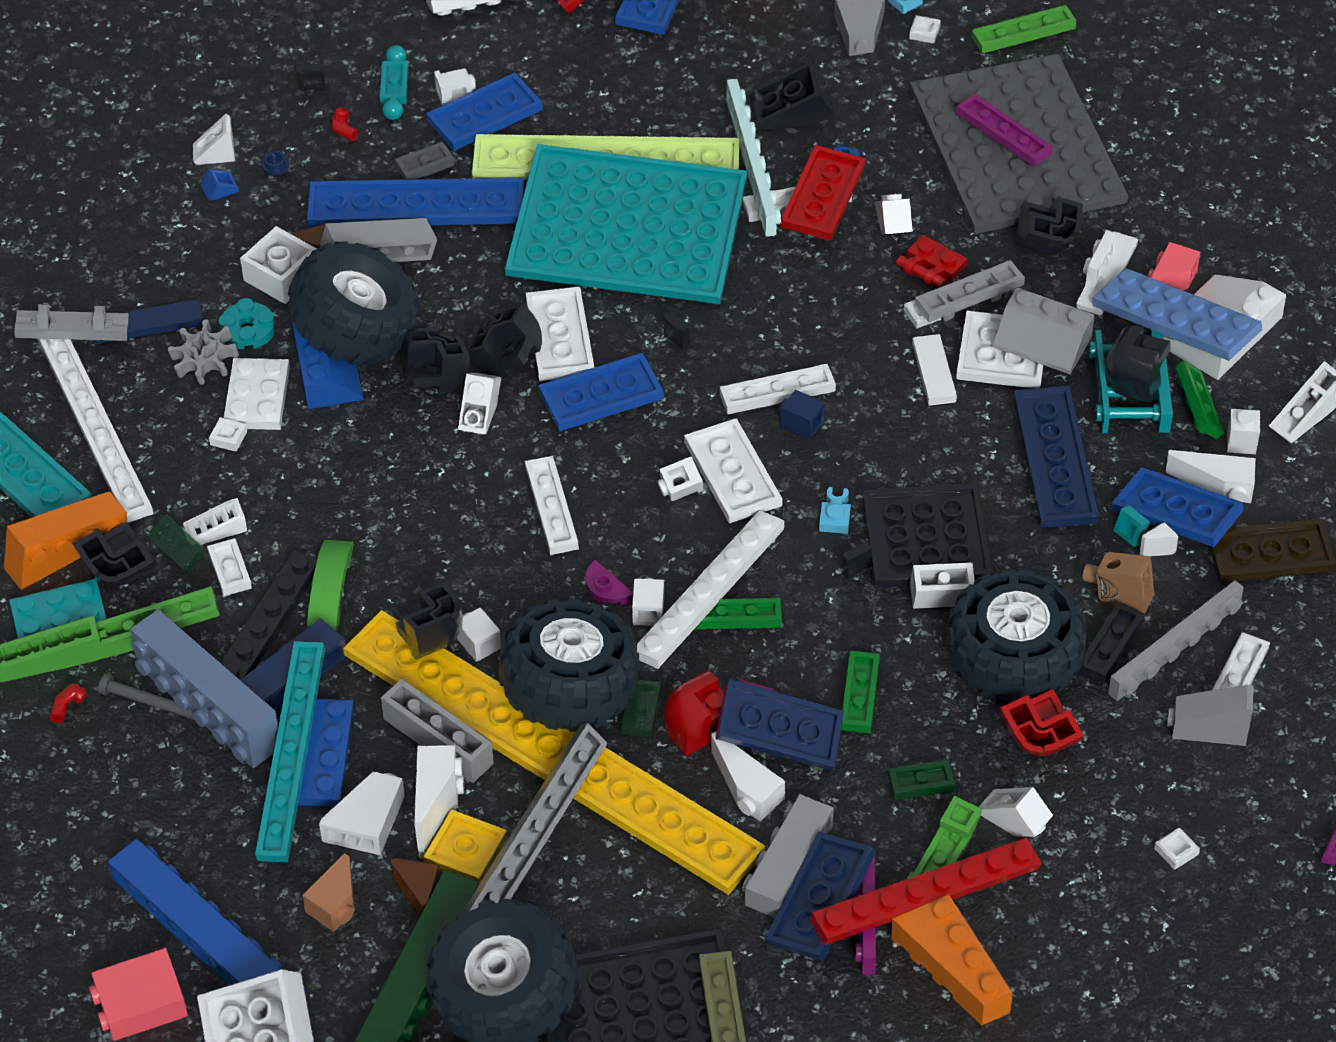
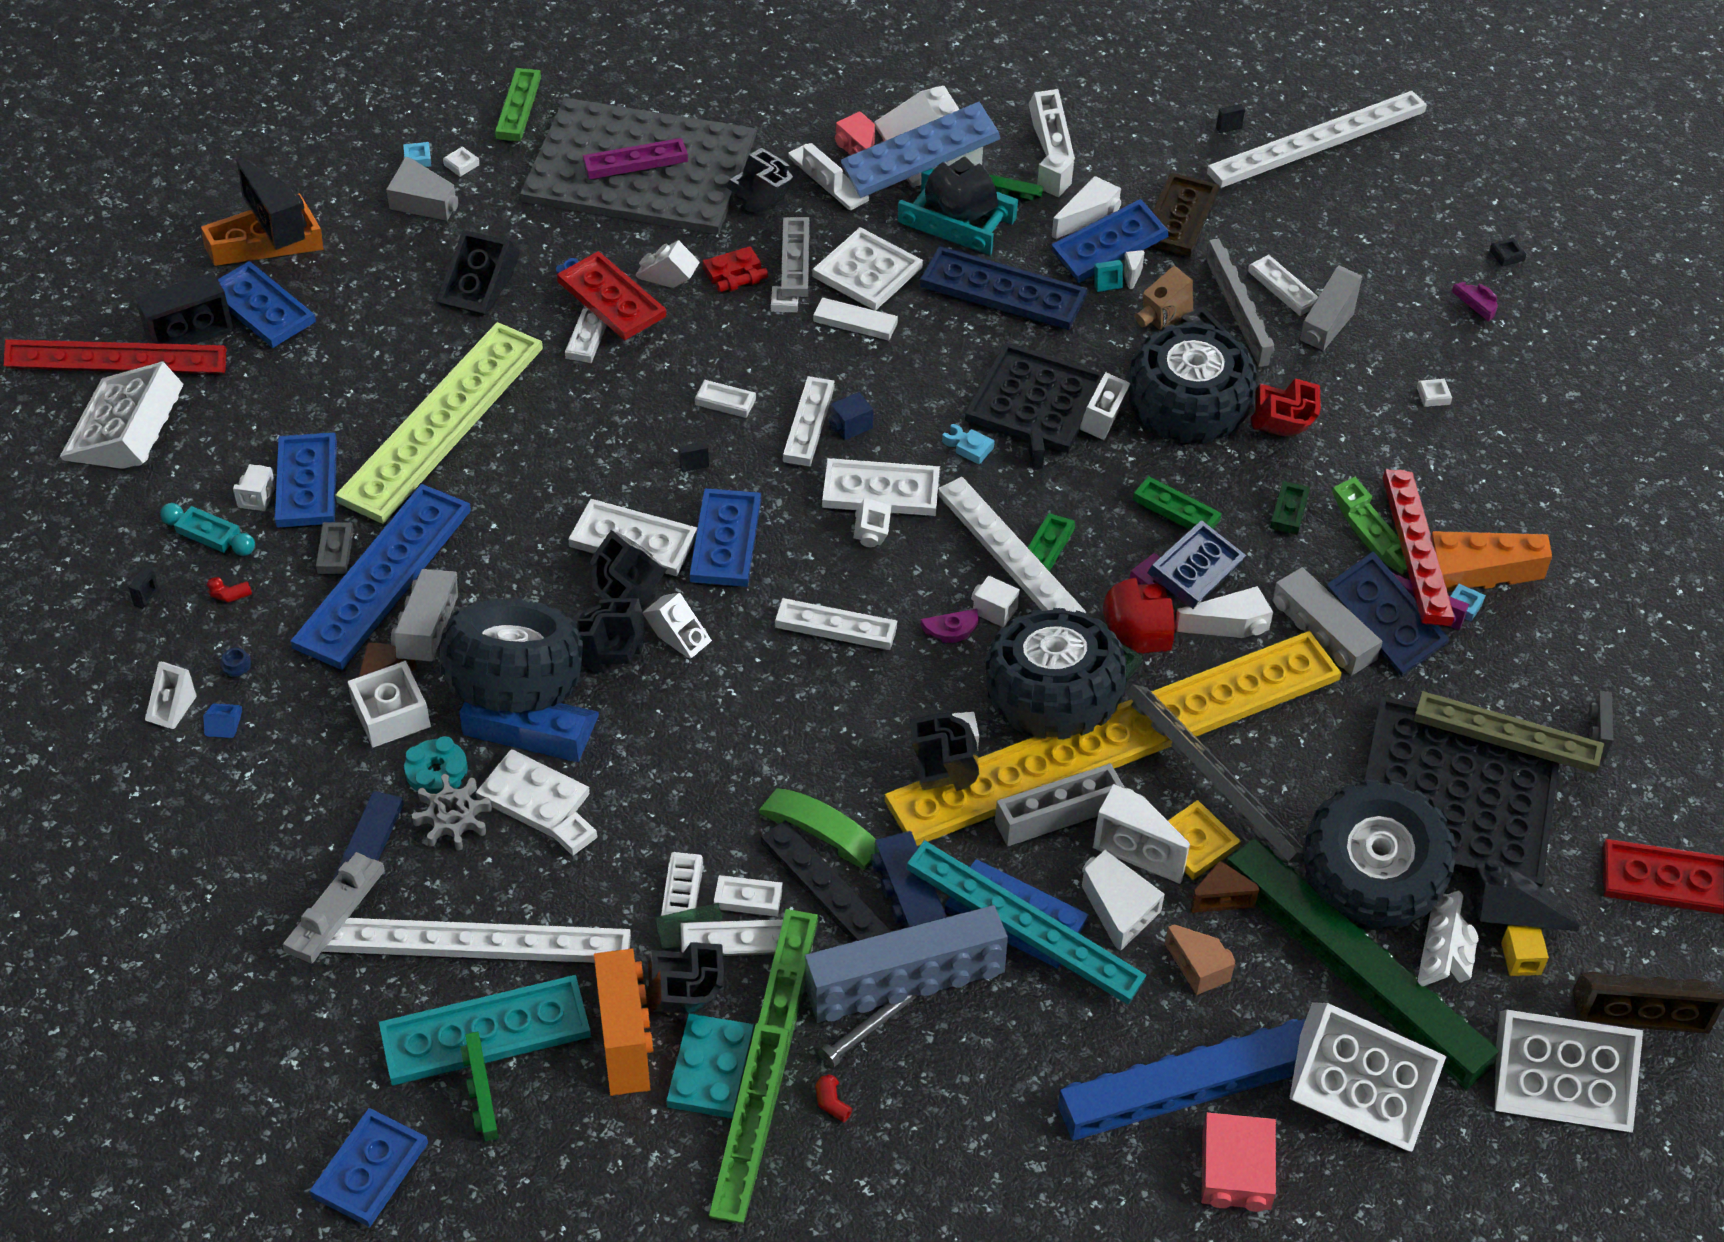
camera: 65 degrees left, 0 degrees up
(179, 573) = (736, 937): none -> white tile
(627, 223) = (539, 436): teal plate -> none
(753, 162) = (531, 321): light aqua plate -> none
(768, 324) = (725, 398): none -> white tile
(892, 962) = (1471, 597): none -> medium azure plate
(1016, 811) = (1358, 459): white slope -> none
(1044, 330) = (879, 229): light grey slope -> none

